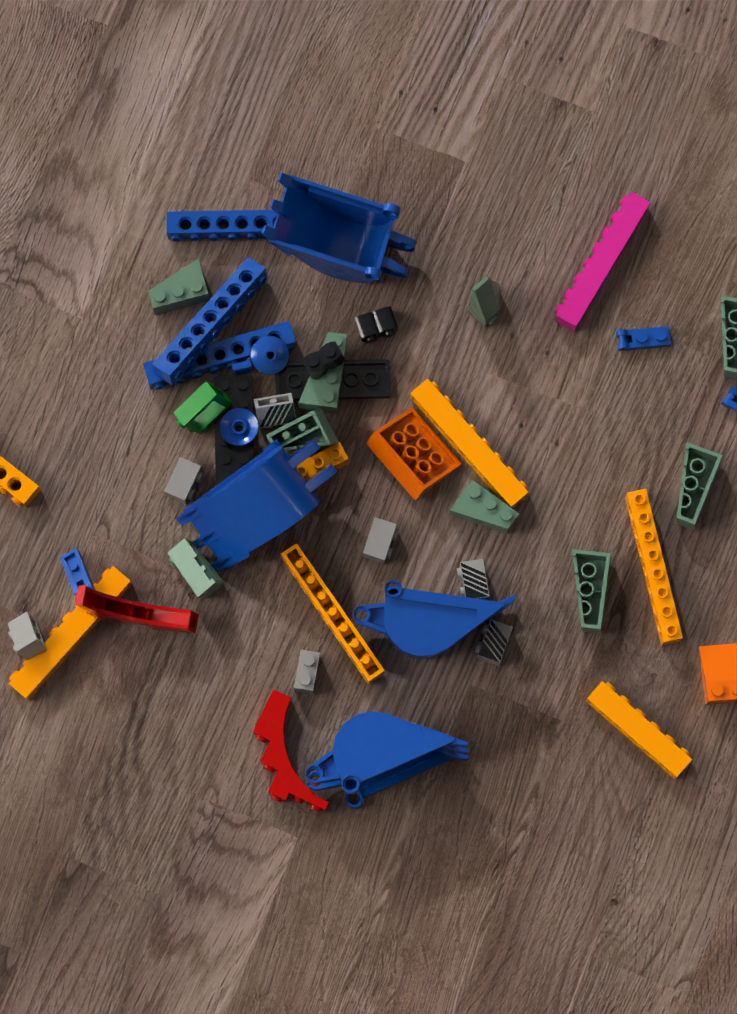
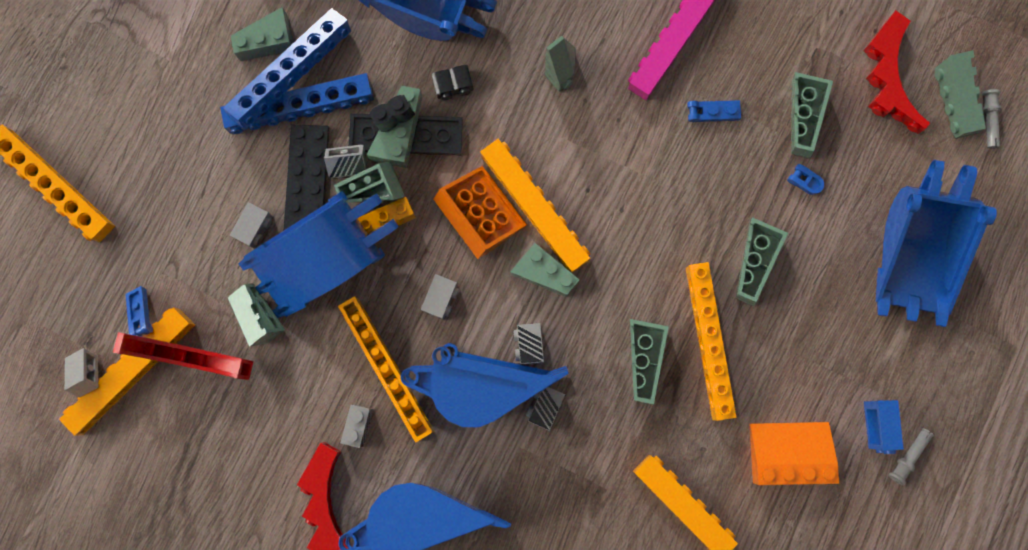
camera: 10 degrees right, 5 degrees up
(202, 408) = (266, 148): green window -> none
(235, 418) = (304, 167): blue dish -> none
(242, 368) = (318, 117): blue tile -> none
(259, 355) = (354, 102): blue dish -> none

